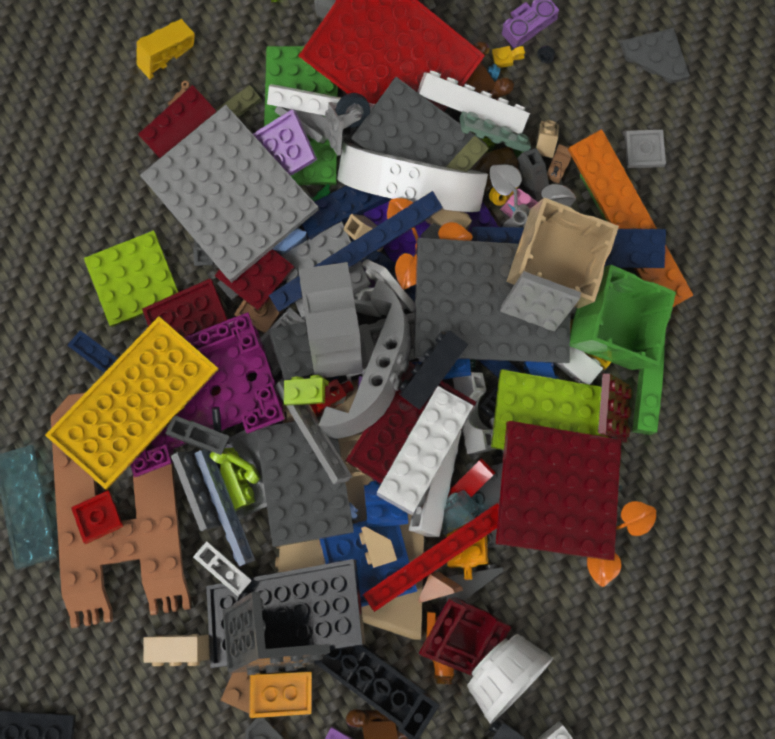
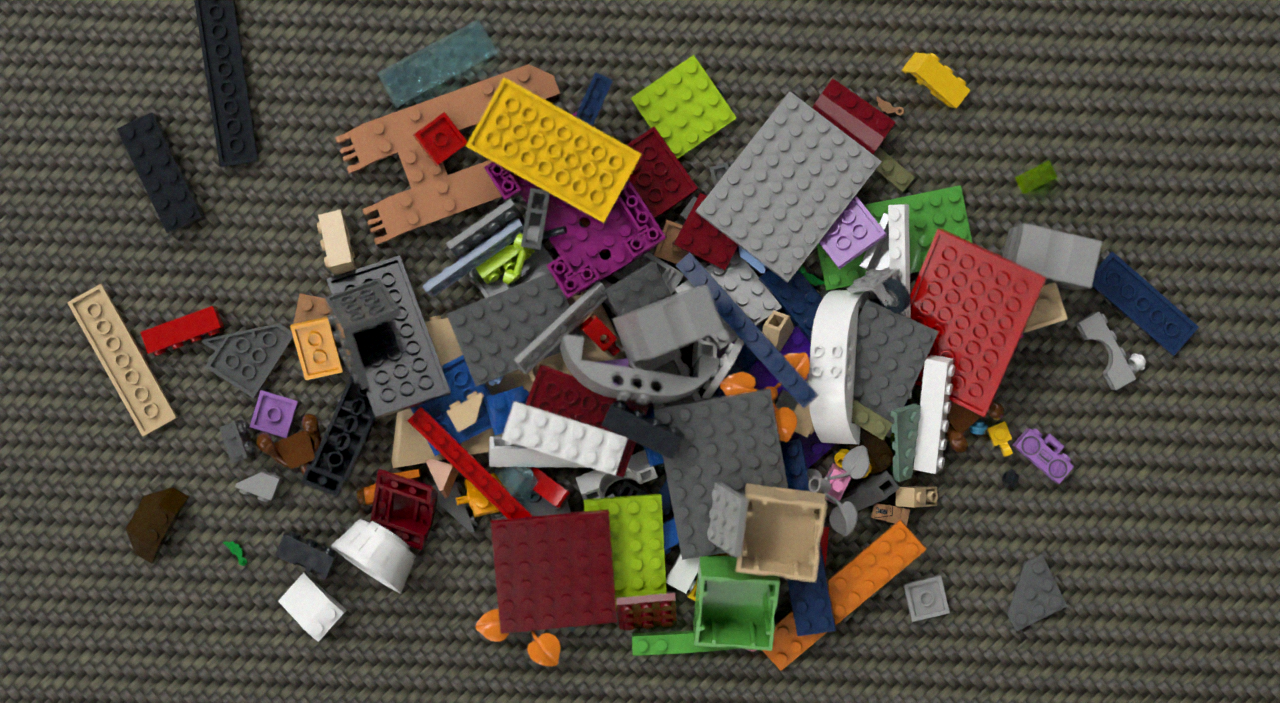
camera: 75 degrees right, 10 degrees up
(222, 568) = (418, 268): white slope -> none
(305, 391) = (596, 312): lime bracket -> none

